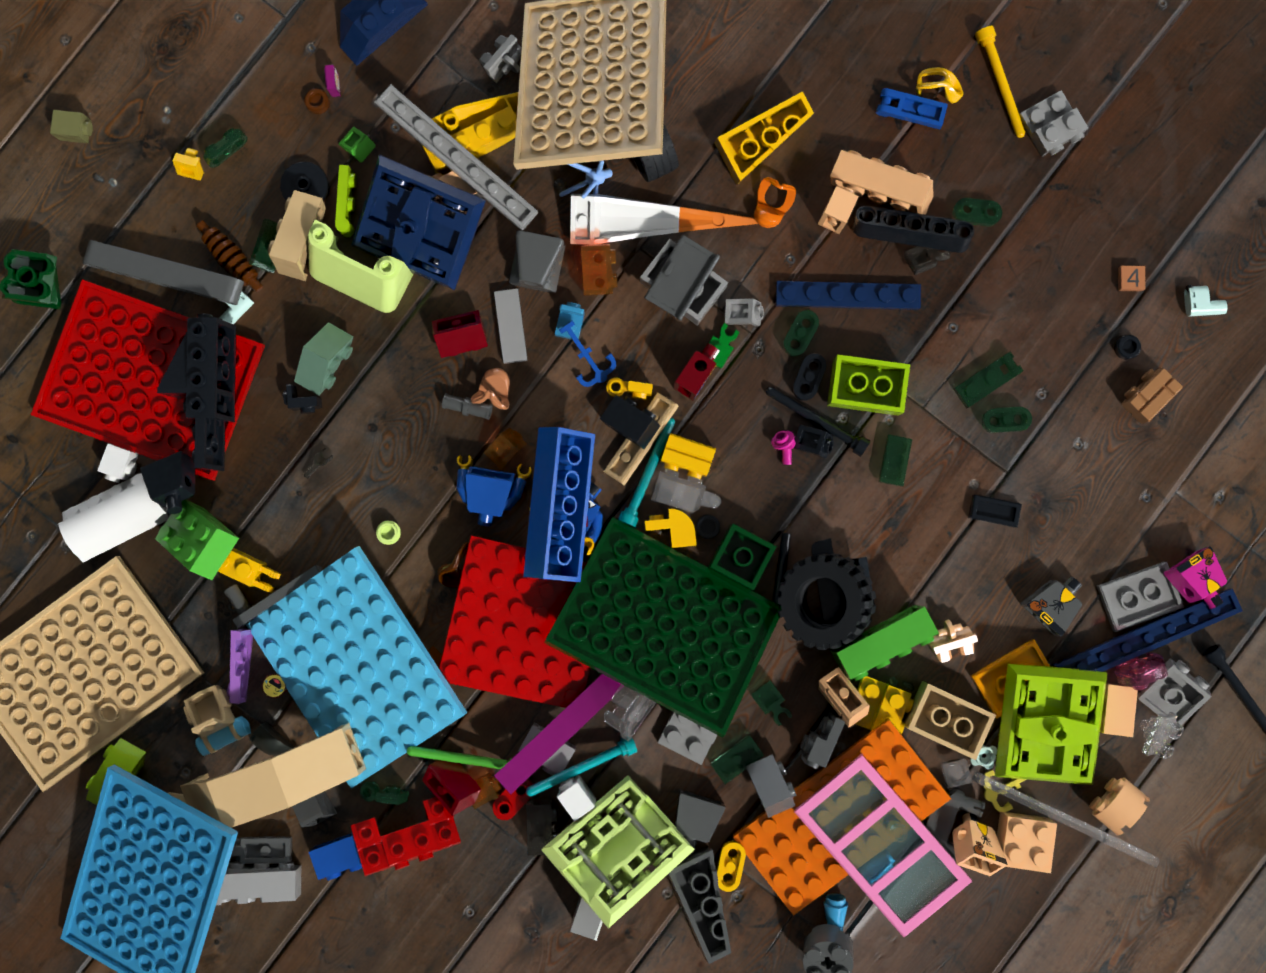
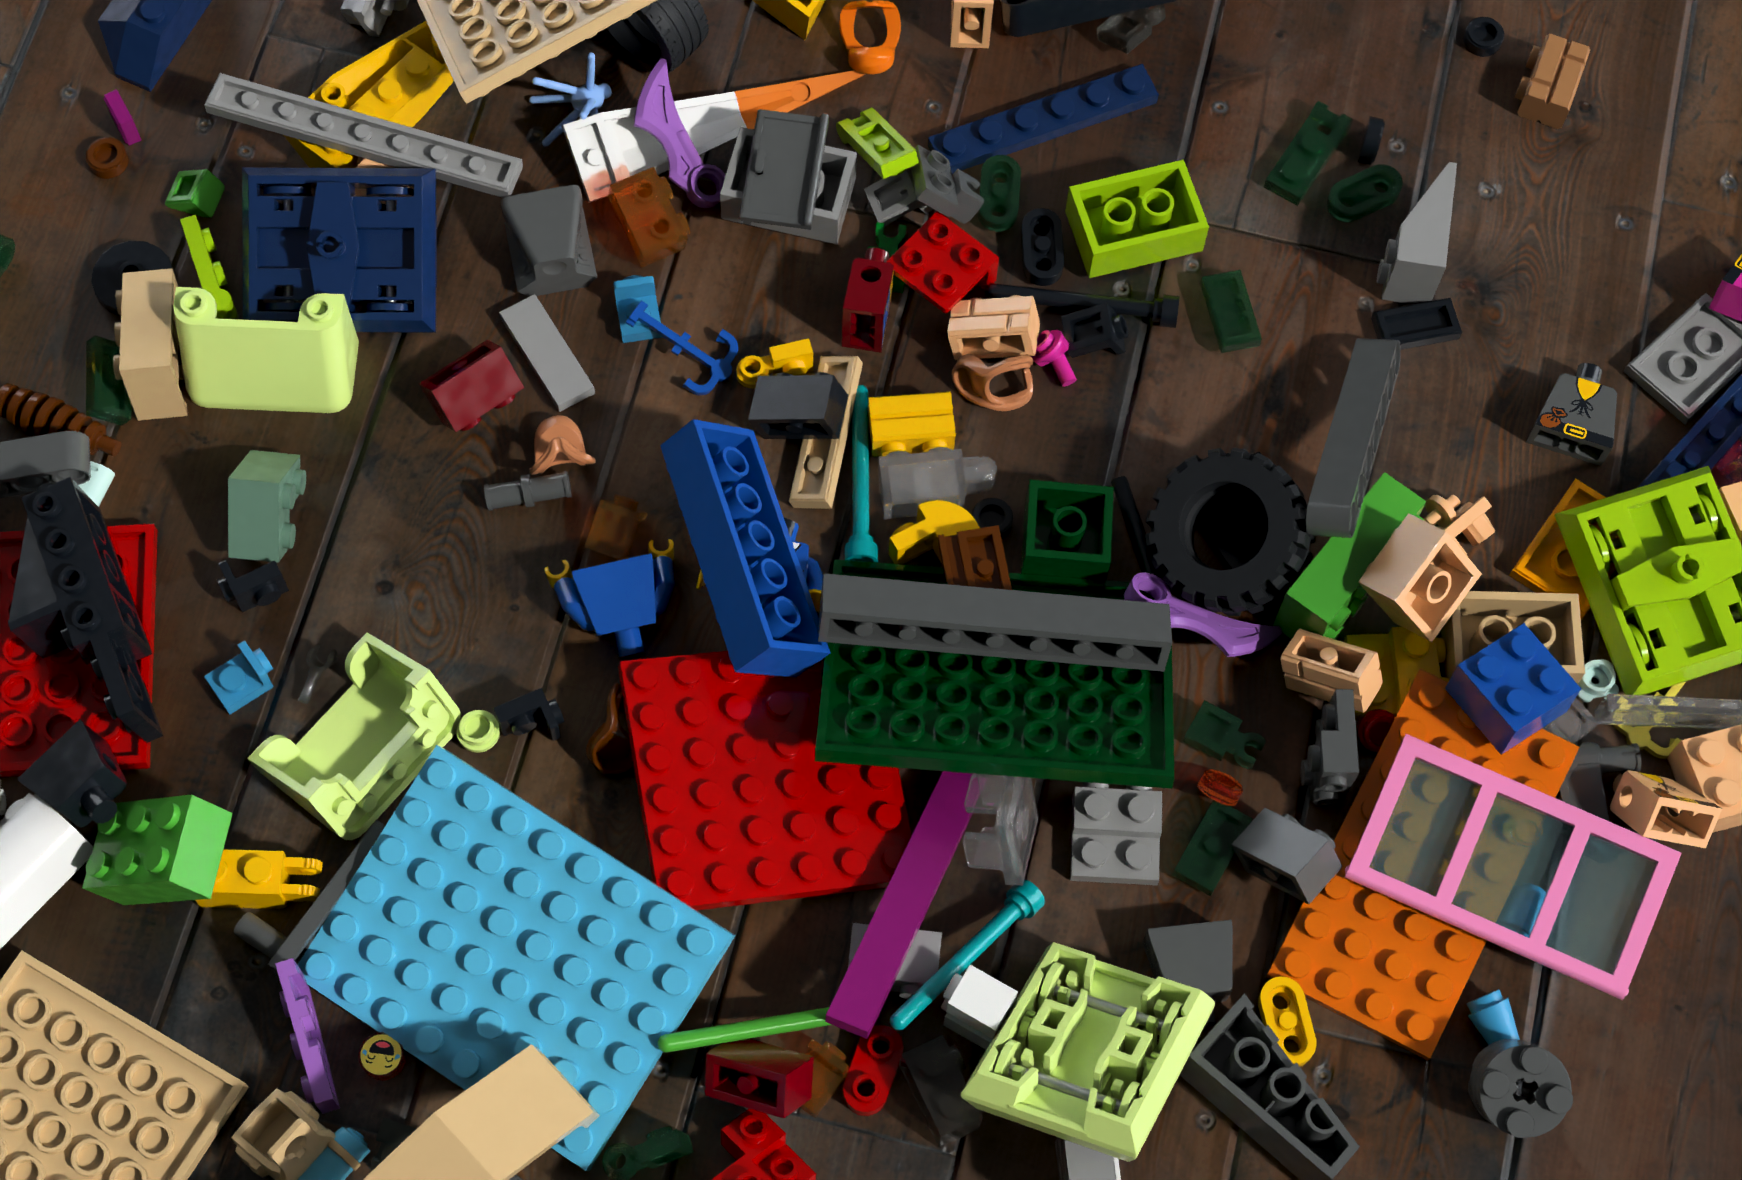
camera: 25 degrees left, 20 degrees down
(277, 450) = (241, 678): none -> dark azure bracket
(323, 516) = (365, 743): none -> yellowish green windscreen
(412, 536) = (524, 713): none -> black bracket
(628, 211) = (659, 117): none -> medium lavender piece
(673, 604) = (994, 622): none -> dark grey brick
(680, 563) = (975, 558): none -> reddish brown plate
(732, 443) = (973, 380): none -> nougat piece
(744, 277) = (877, 143): none -> lime plate
(746, 369) = (944, 262): none -> red bracket
(756, 730) = (1220, 787): none -> clear red tile
(757, 419) = (994, 327): none -> light nougat brick
(765, 320) = (941, 189): none -> dark grey plate
(773, 629) = (1229, 634): none -> medium lavender piece
(853, 734) = (1373, 728): none -> red plate
(912, 675) = (1420, 577): none -> light nougat brick
(919, 576) = (1353, 438): none -> dark grey beam
(929, 759) = (1512, 688): none -> blue brick
(1017, 474) = (1420, 251): none -> light grey slope
(1027, 388) = (1371, 140): none -> black tile

